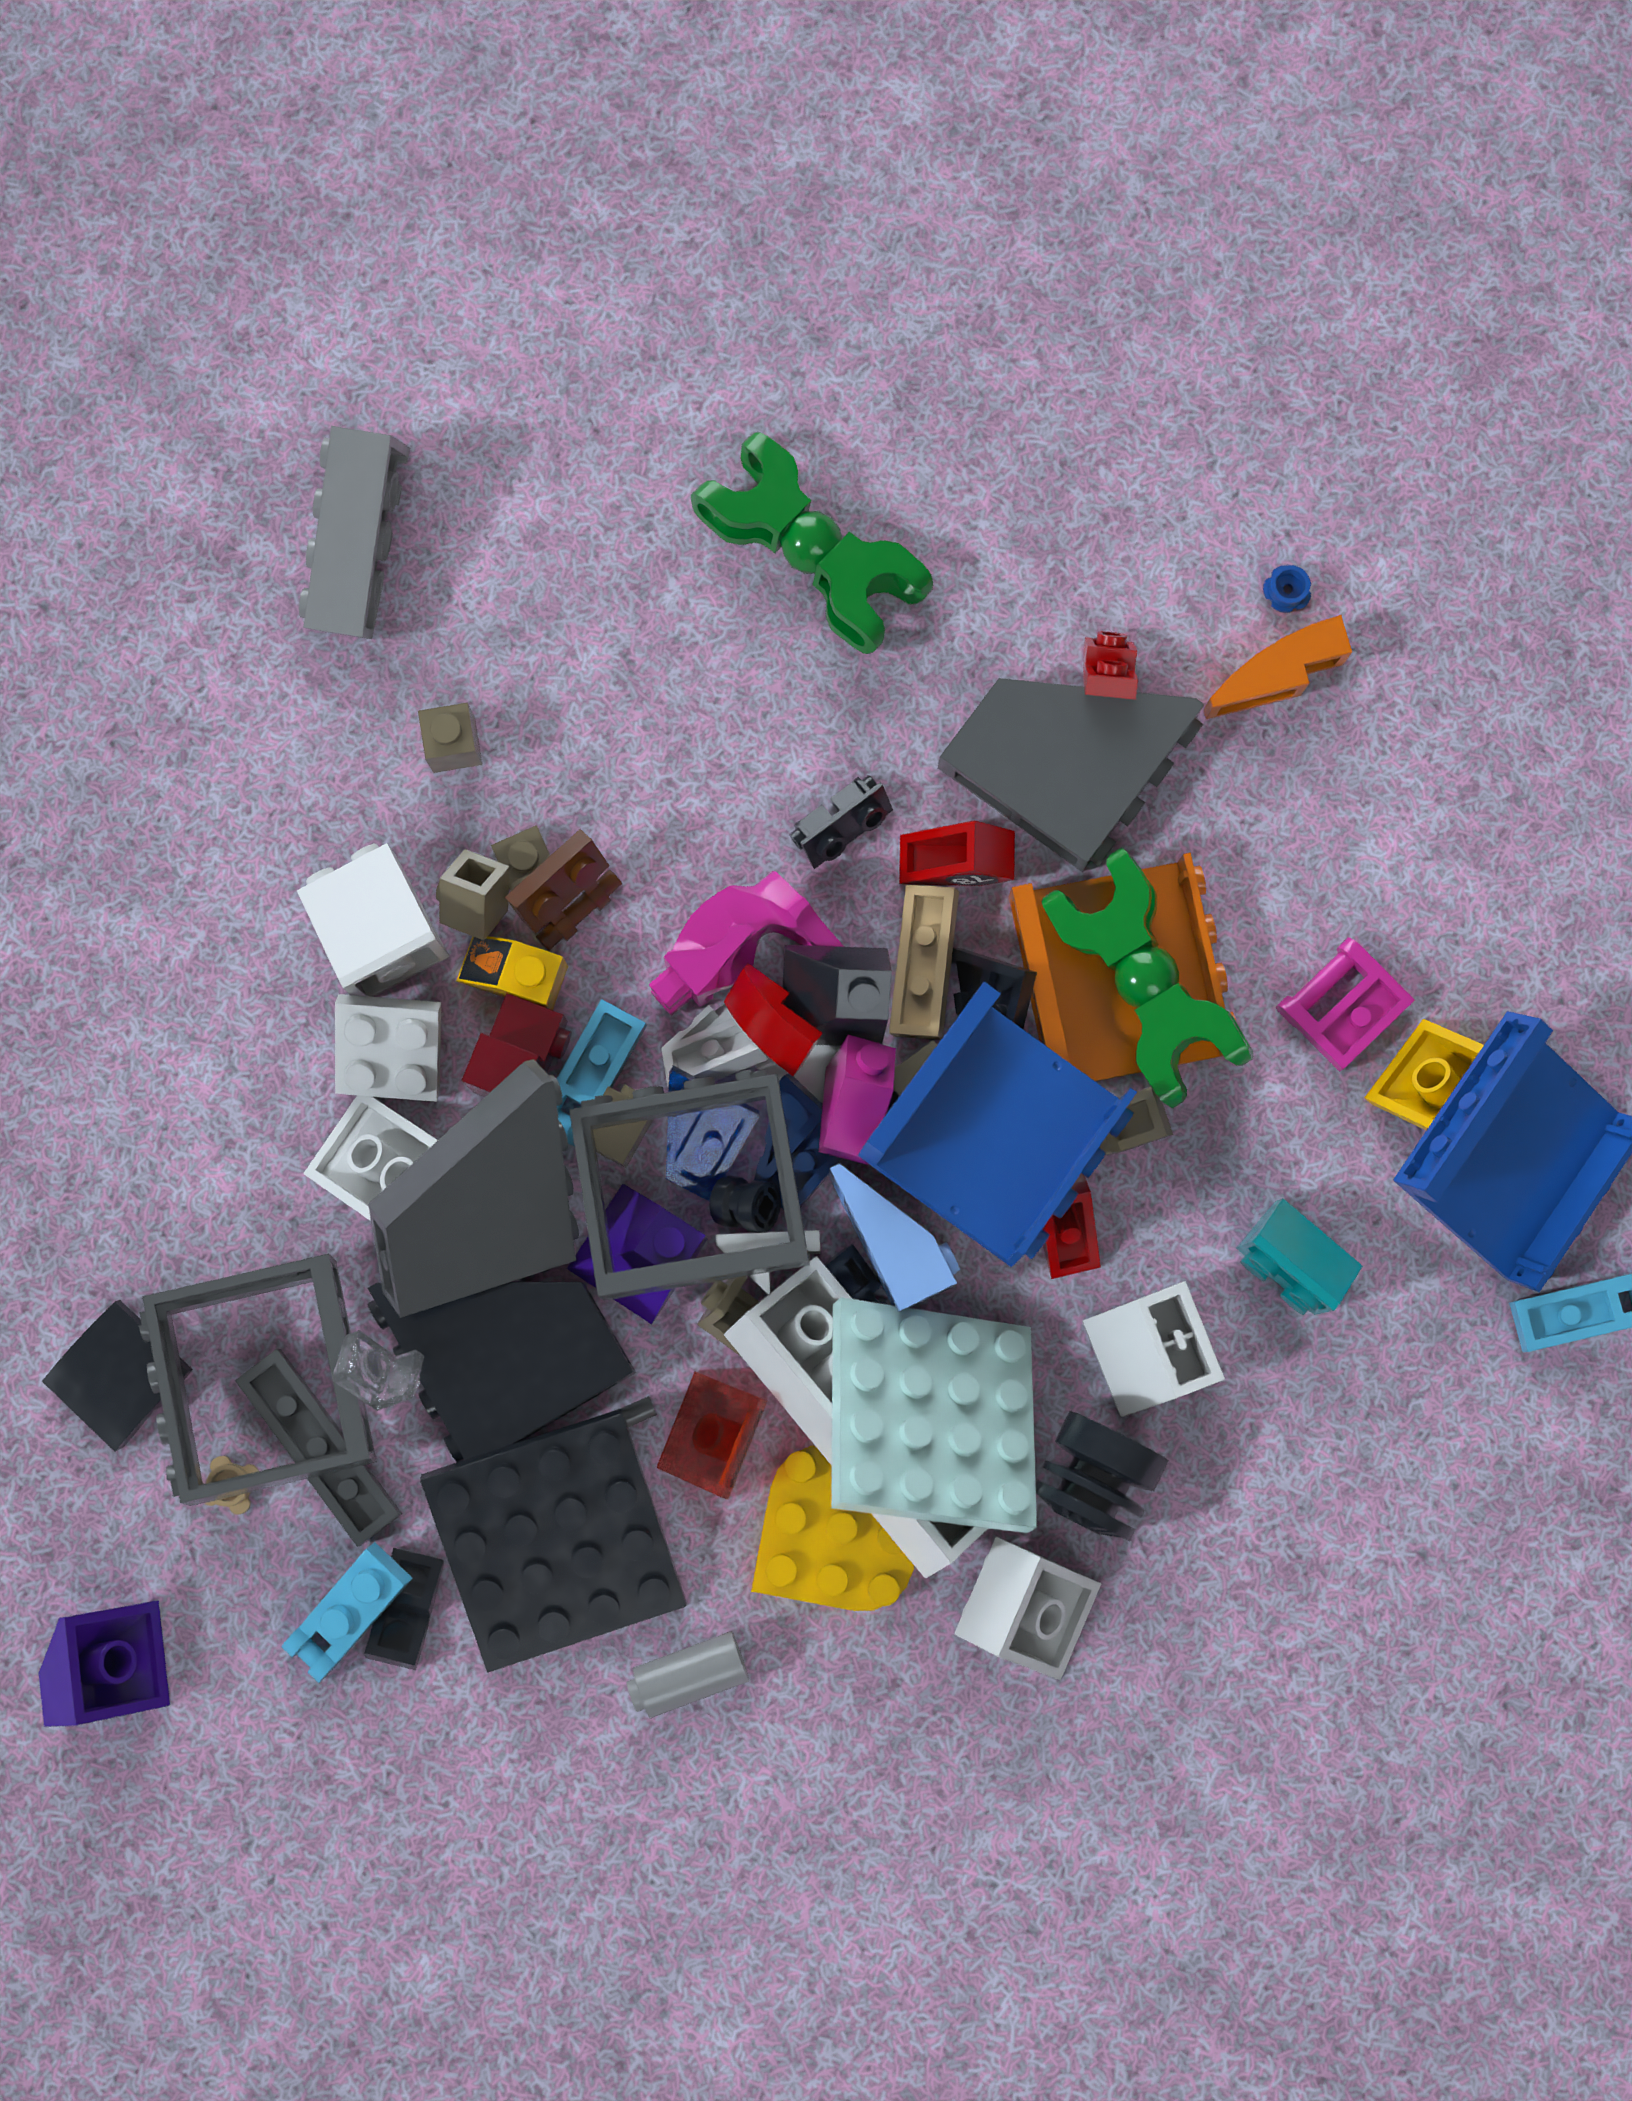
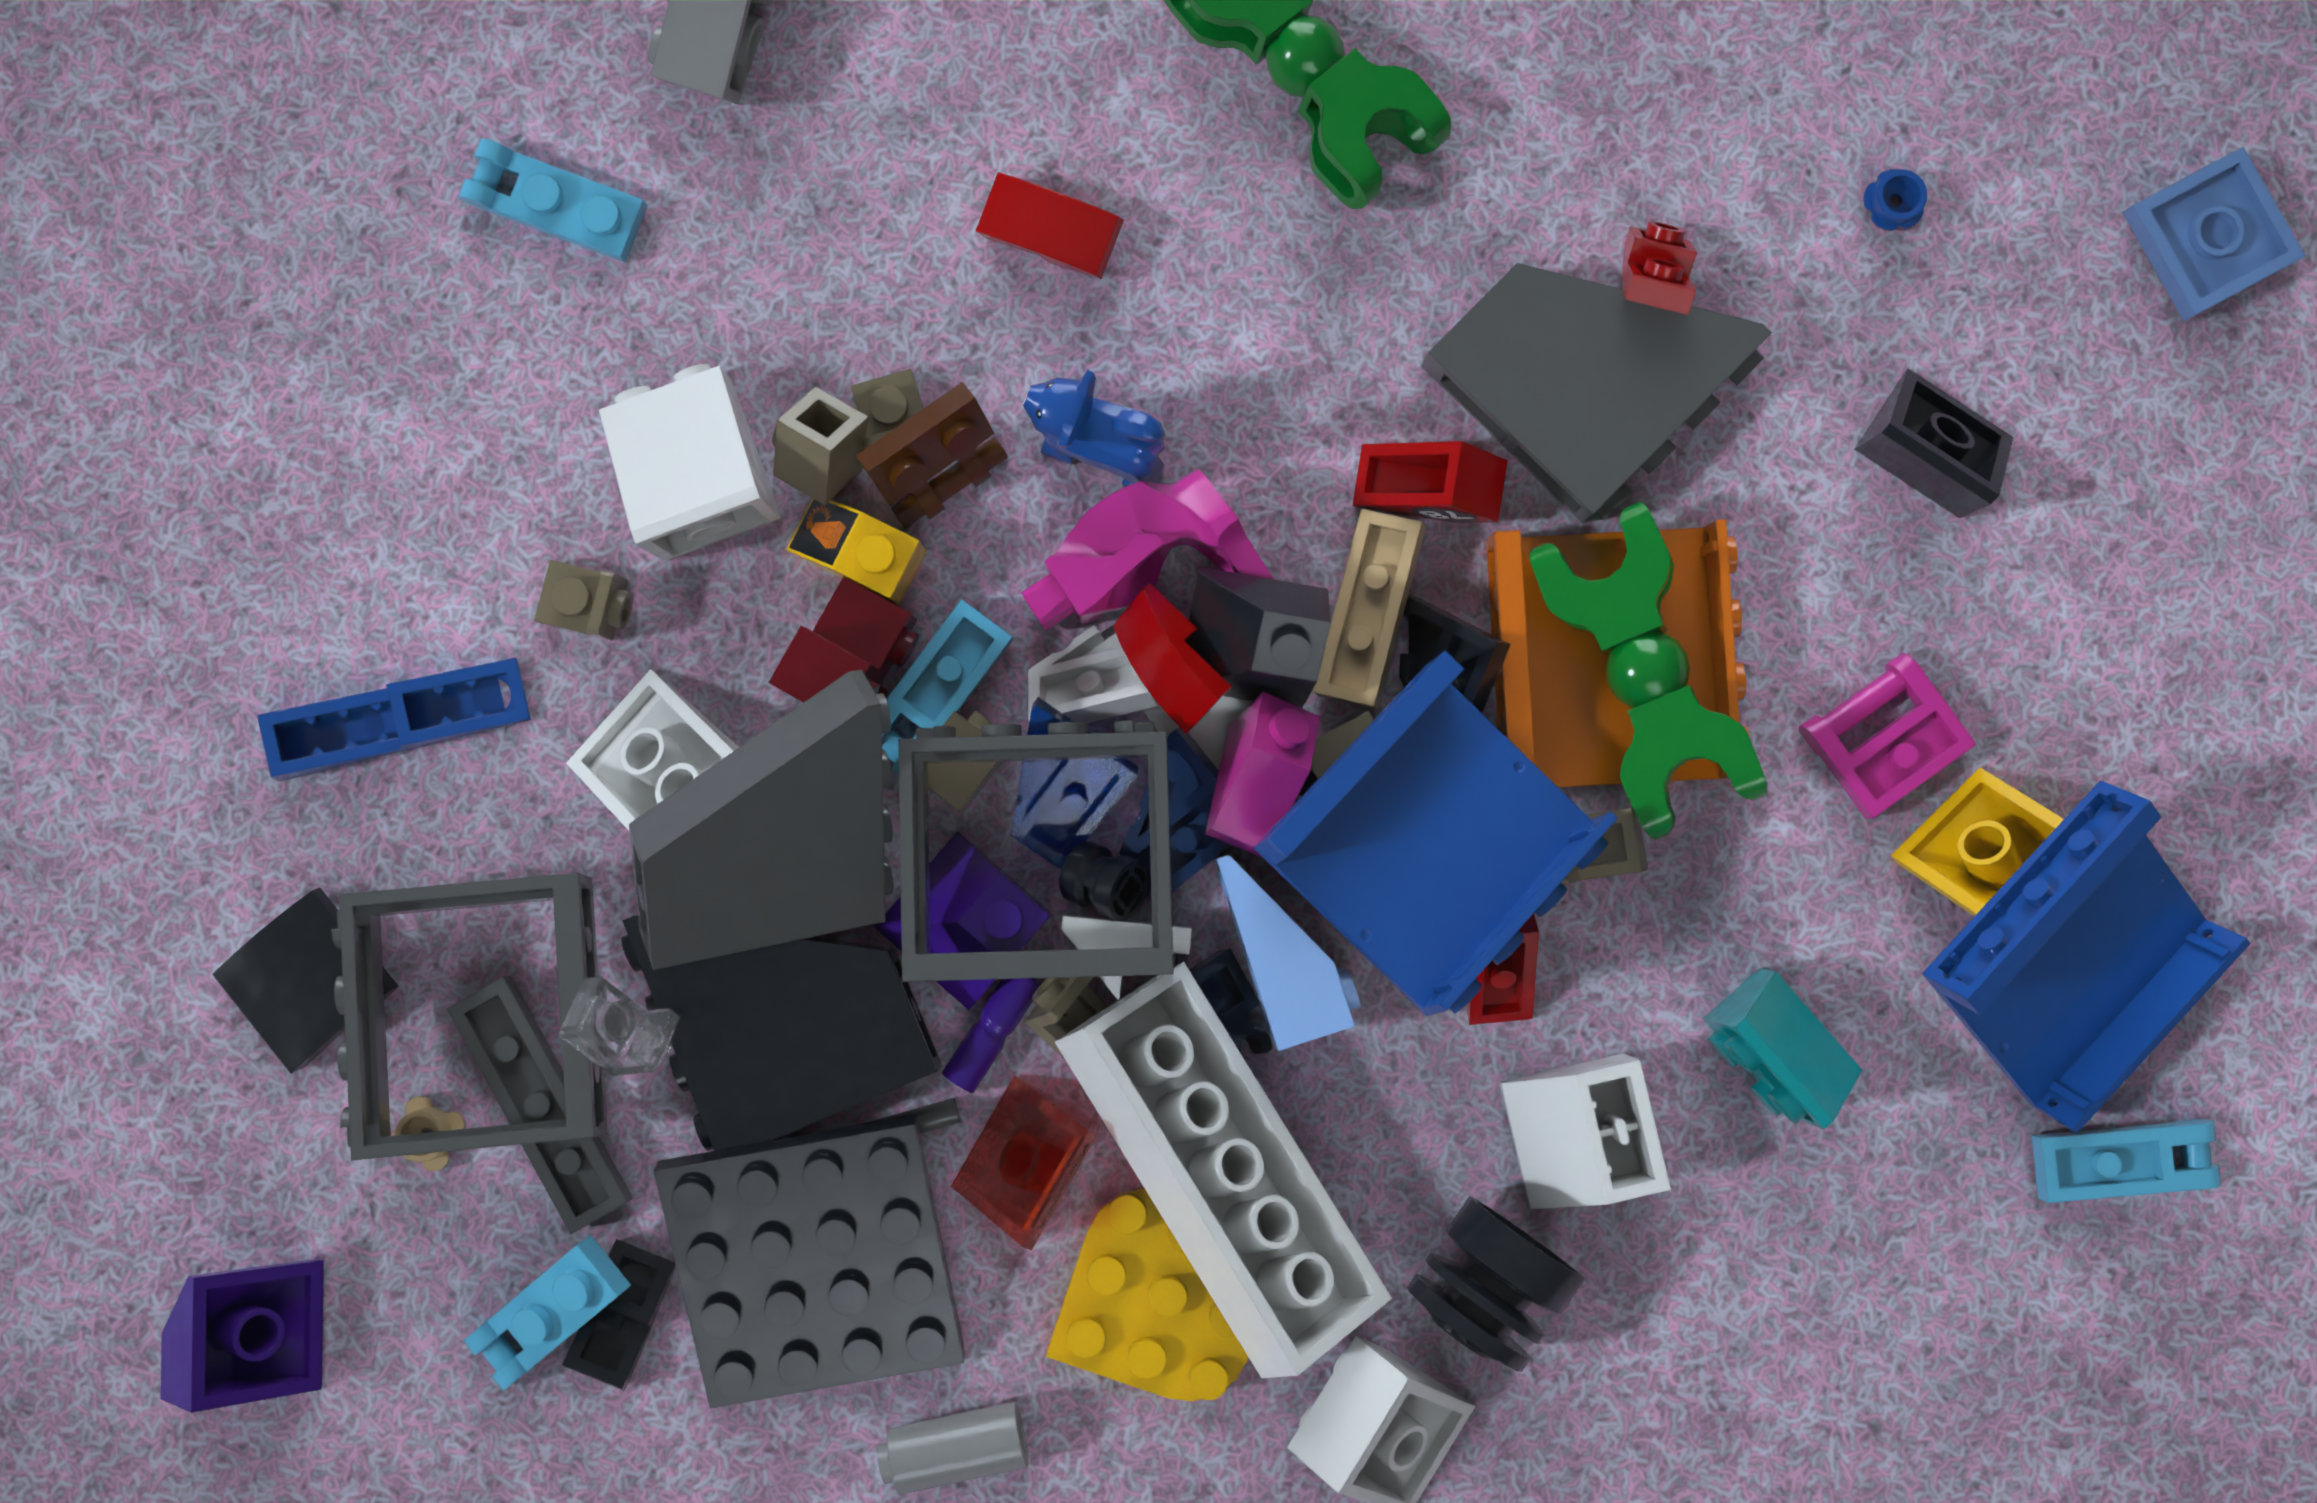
camera: 10 degrees right, 5 degrees up
(161, 1158) = (391, 719): none -> blue slope
(237, 734) = (554, 201): none -> medium azure plate
(300, 1042) = (584, 600): none -> dark tan bracket
(387, 1047) = (687, 622): white plate -> none
(450, 737) = (816, 242): dark tan brick -> none
(630, 699) = (1049, 225): none -> red slope
(669, 1341) = (988, 1035): none -> dark purple piece
(689, 852) = (1095, 429): none -> blue animal
(860, 808) = (1318, 404): black hinge -> none
(932, 1417) = (1298, 1186): light aqua plate -> none
(1282, 668) = (1877, 300): orange slope -> none
(1349, 772) = (1938, 446): none -> black slope
(1537, 581) = (2213, 233): none -> medium blue plate

